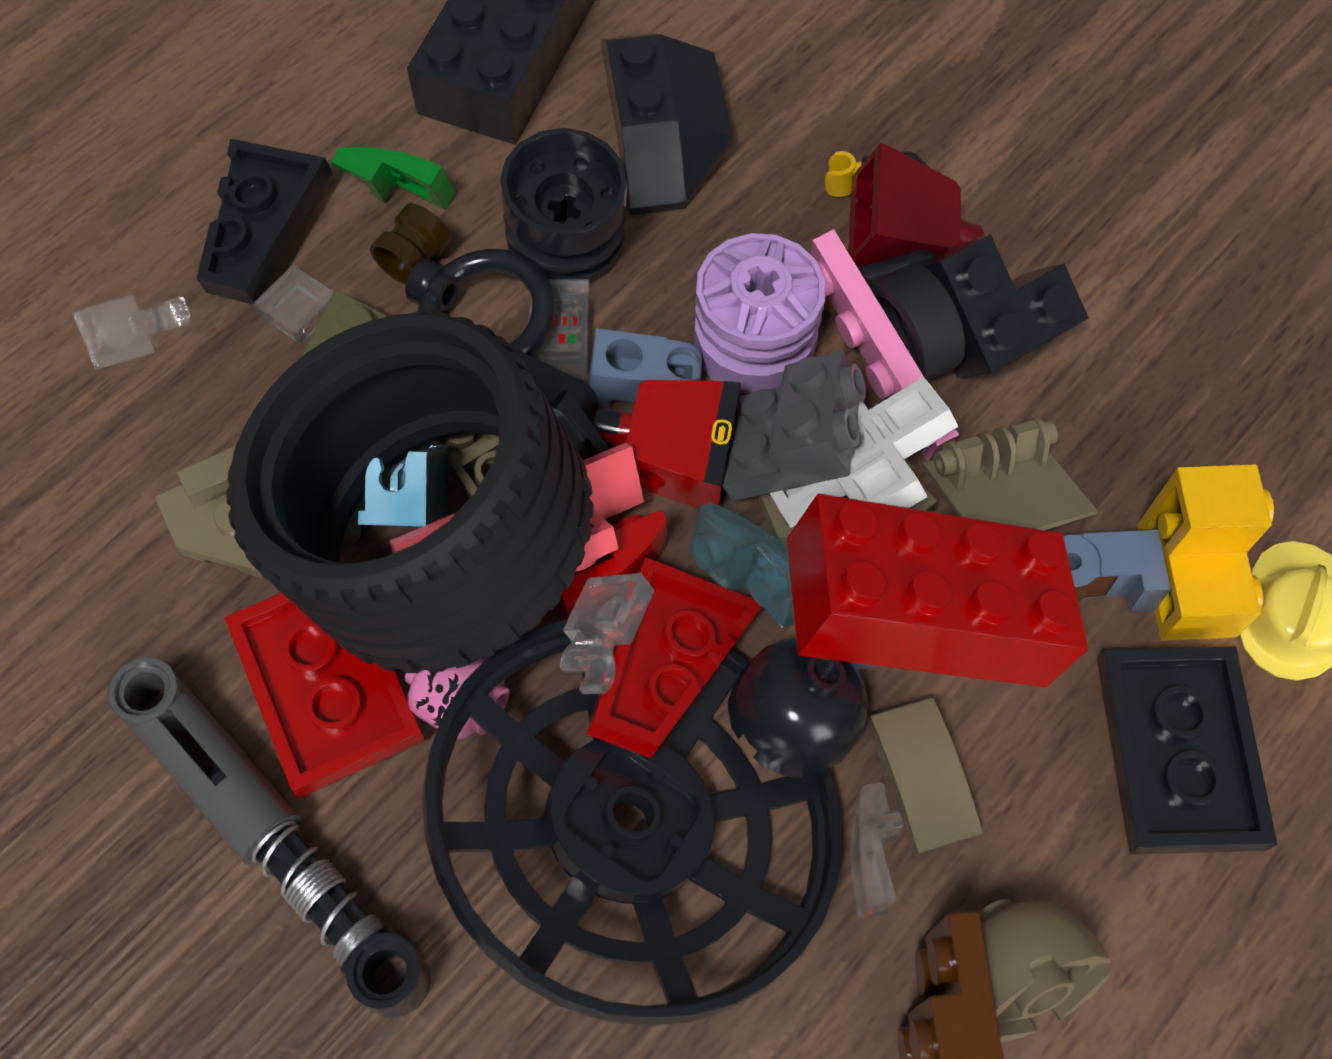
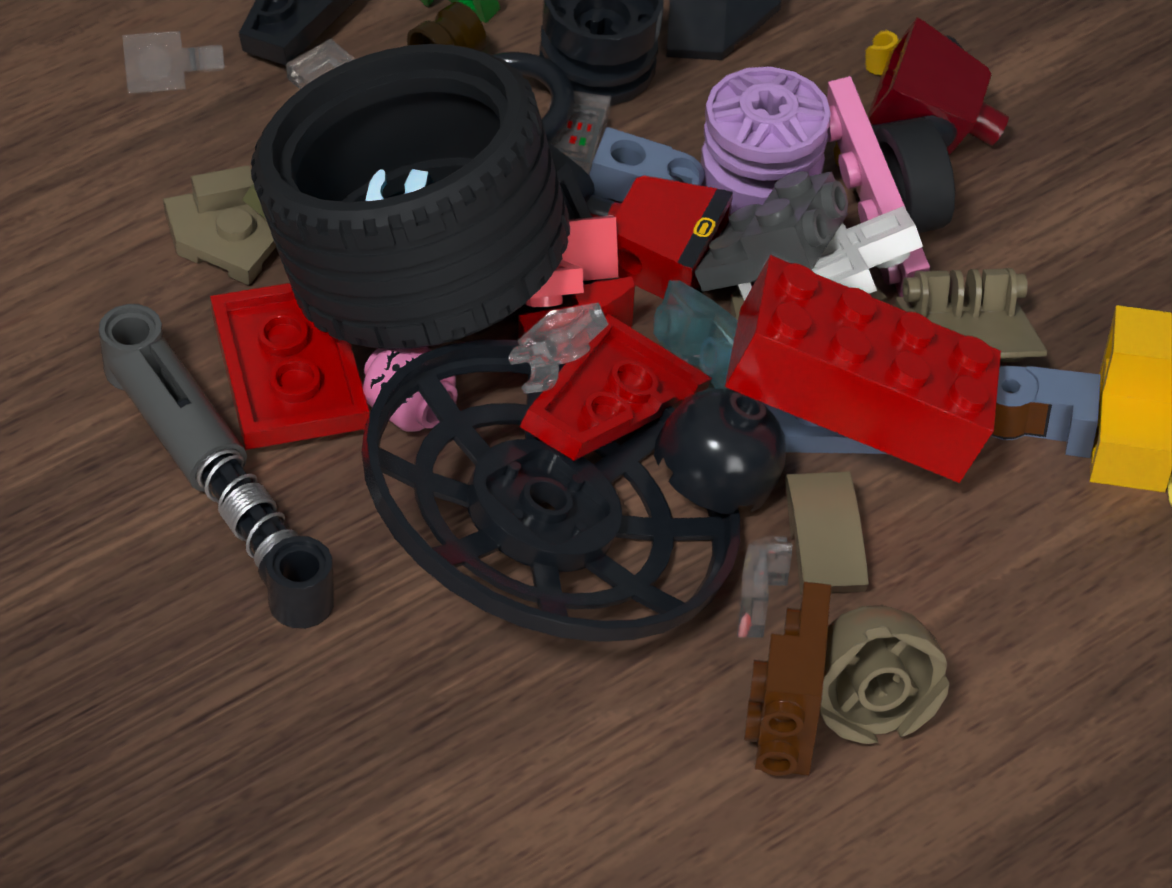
camera: 10 degrees right, 15 degrees down
(999, 314) = (994, 185): black brick -> none
(1185, 751) = (1079, 557): black plate -> none

